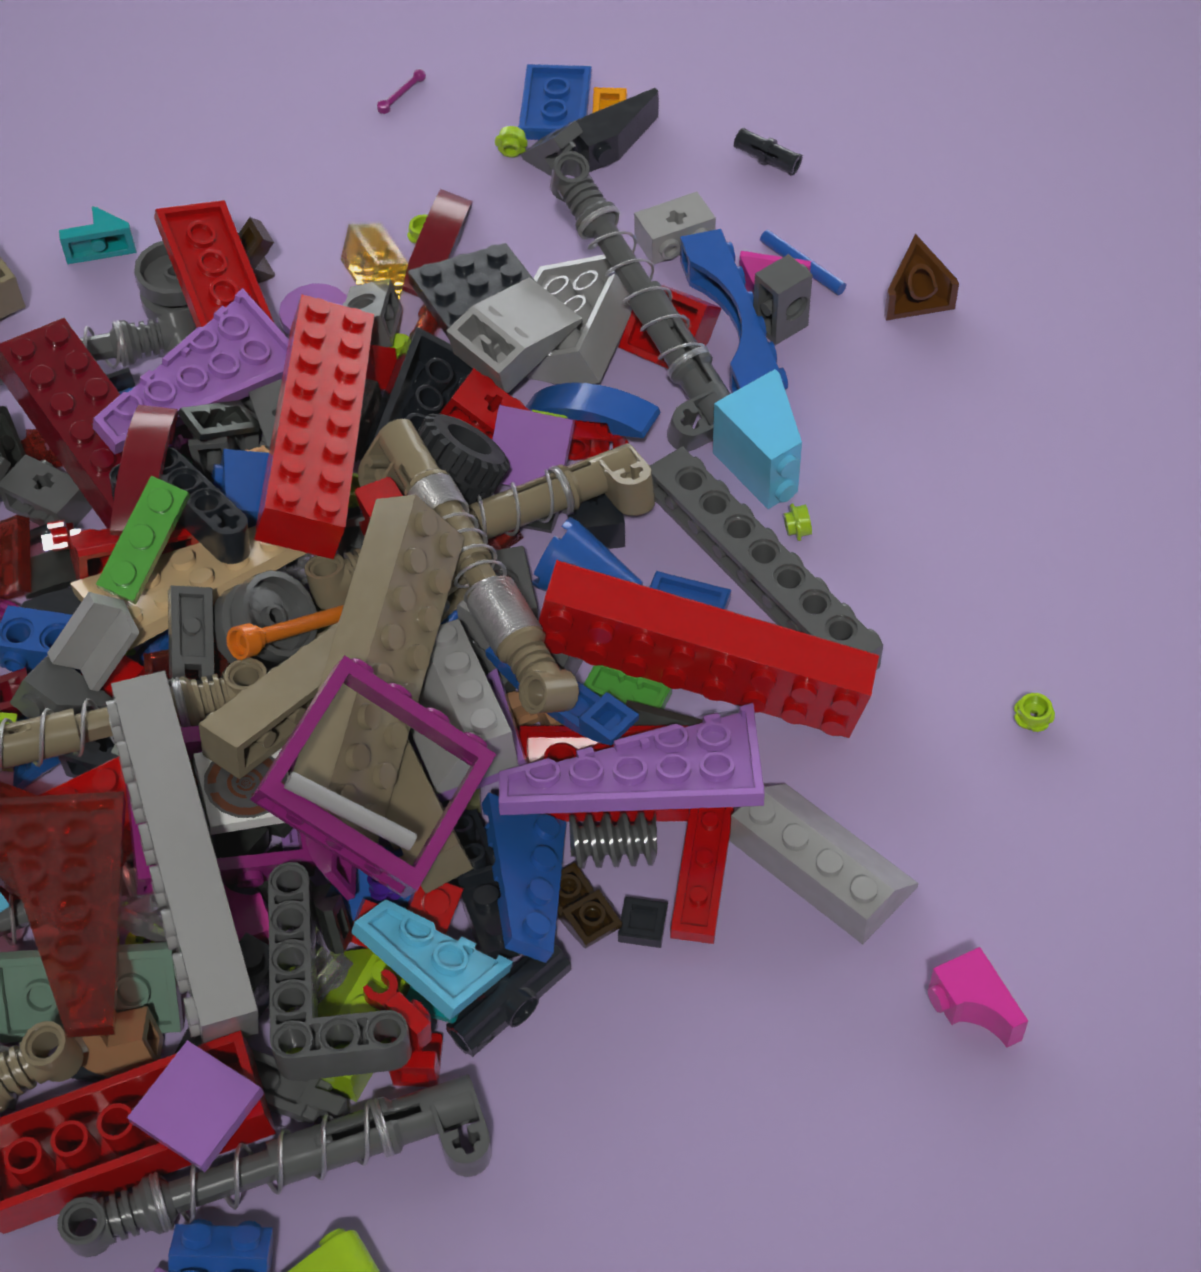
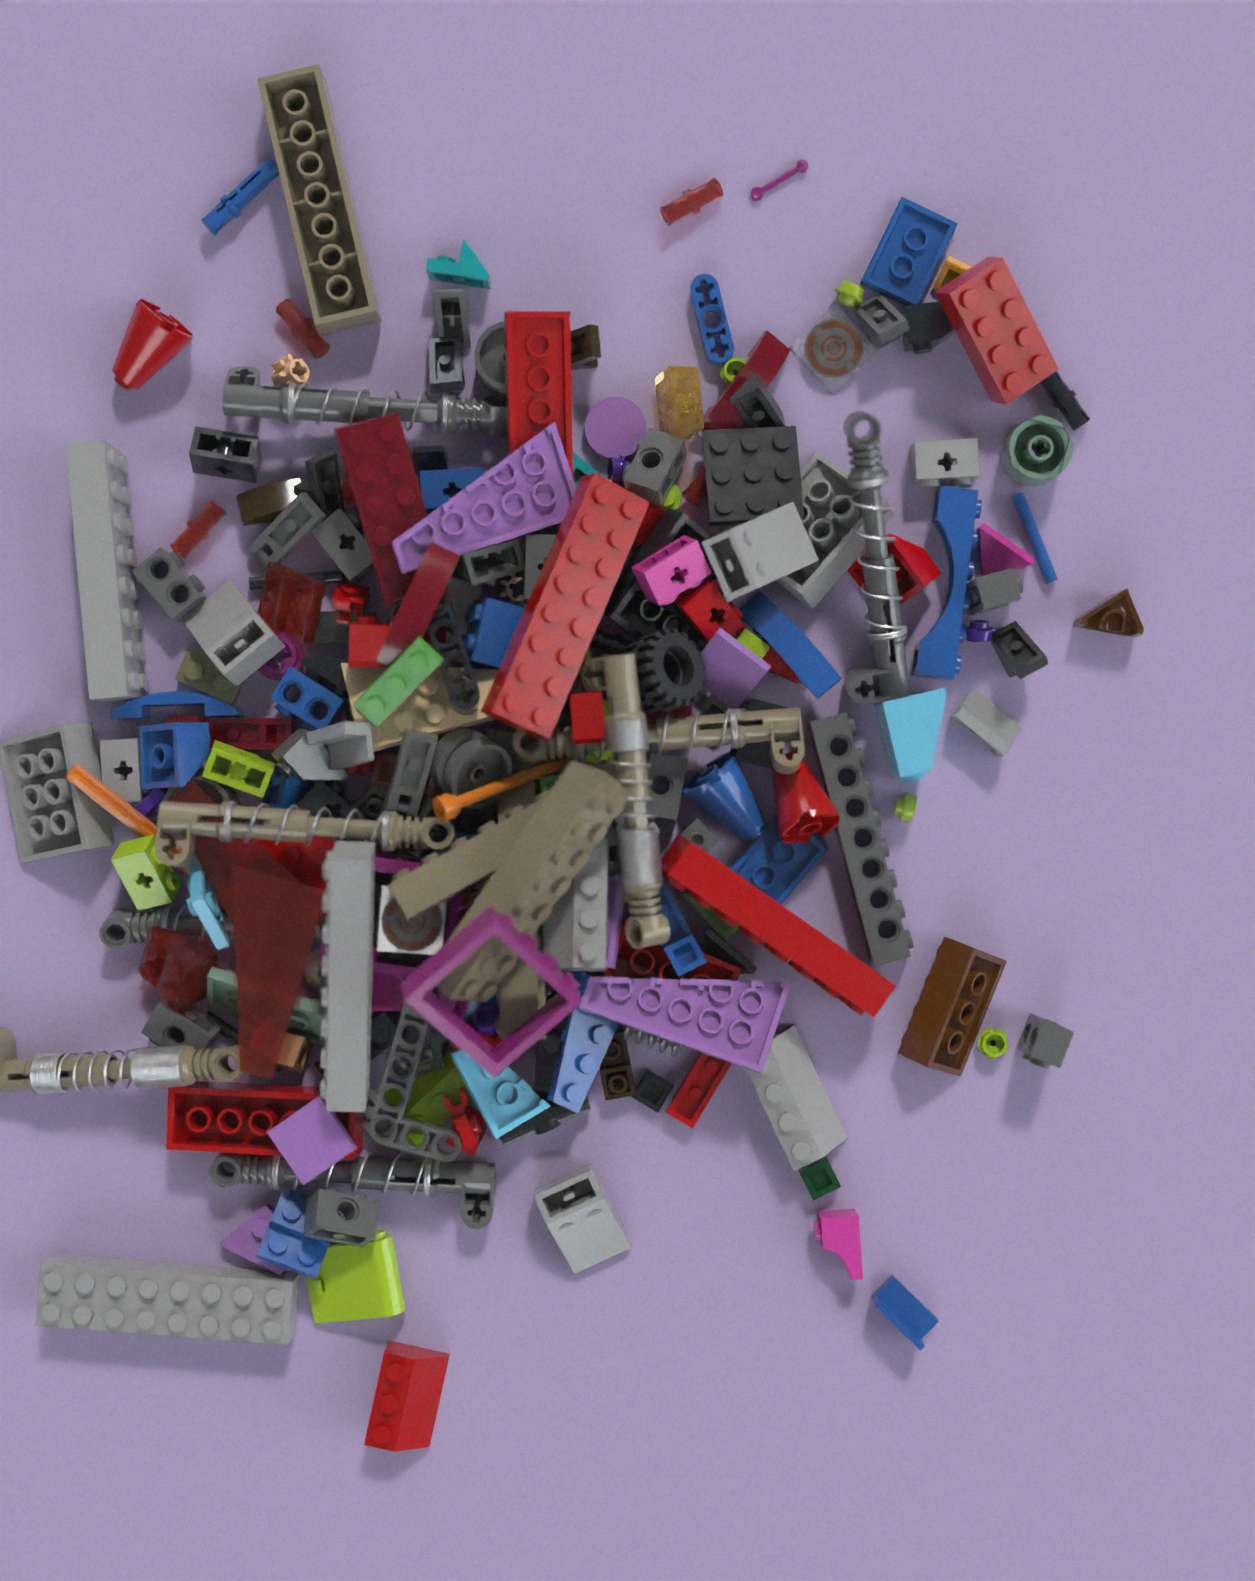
camera: 20 degrees right, 35 degrees up
(101, 271) = (453, 314): none -> dark grey slope
(107, 307) = (446, 364): none -> black slope
(271, 1211) = (325, 1223): none -> dark grey brick
(319, 125) = (691, 201): none -> clear red pin
(350, 811) = (463, 1025): light grey bar -> none
(378, 190) = (714, 296): none -> blue beam
(425, 372) = (656, 571): none -> dark pink brick
(453, 231) = (757, 405): none -> pearl dark grey slope
(514, 188) = (833, 349): none -> tile
(616, 1101) = (581, 1218): none -> light grey slope
(669, 106) = (997, 330): none -> brick
(679, 544) = (802, 806): none -> red cone
(762, 188) = (1052, 442): none -> sand green brick
(789, 346) = (979, 631): none -> dark purple plate
(841, 349) = (1017, 651): none -> pearl dark grey slope
(841, 424) = (986, 723): none -> light grey panel
(907, 937) = (819, 1178): none -> dark green plate
(962, 689) = (951, 1007): none -> reddish brown slope
(1089, 671) = (1044, 1041): none -> dark grey brick
(1107, 1059) = (904, 1310): none -> blue panel

